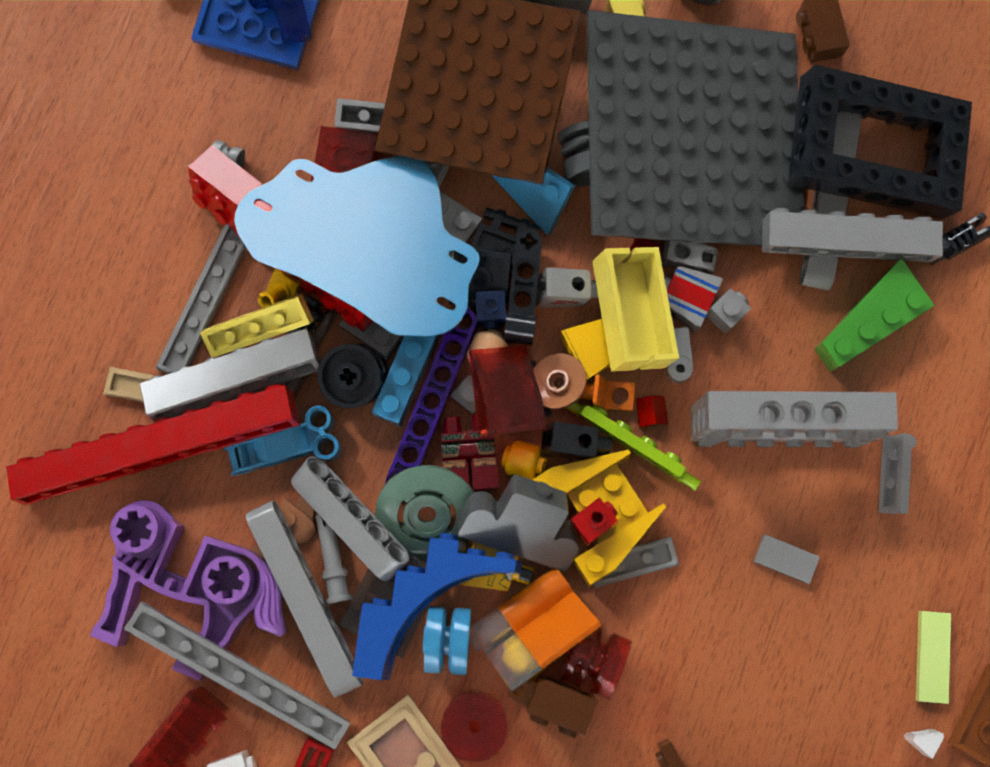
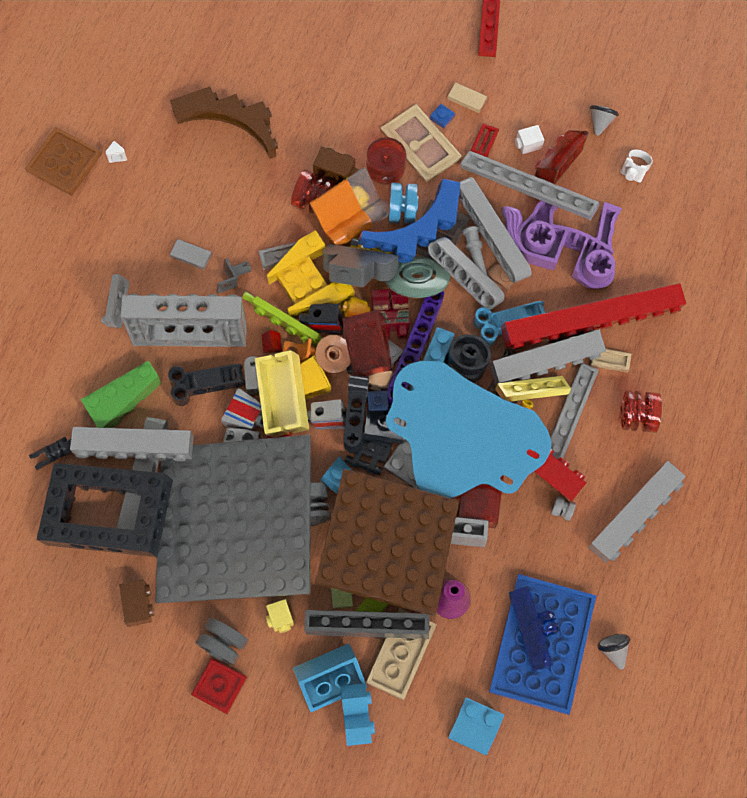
camera: 175 degrees right, 10 degrees down
(66, 712) = (633, 171): none -> white piece
(97, 292) = (645, 411): none -> clear red wheel
(120, 153) = (636, 512): none -> light grey brick
(384, 33) = (453, 599): none -> magenta cone
(594, 520) = (312, 264): red brick -> none
(715, 525) = (233, 273): none -> dark grey bracket
(729, 310) = (217, 402): light grey brick -> none
(751, 344) = (204, 381): none -> black piece
(933, 657) = (104, 199): yellowish green tile -> none

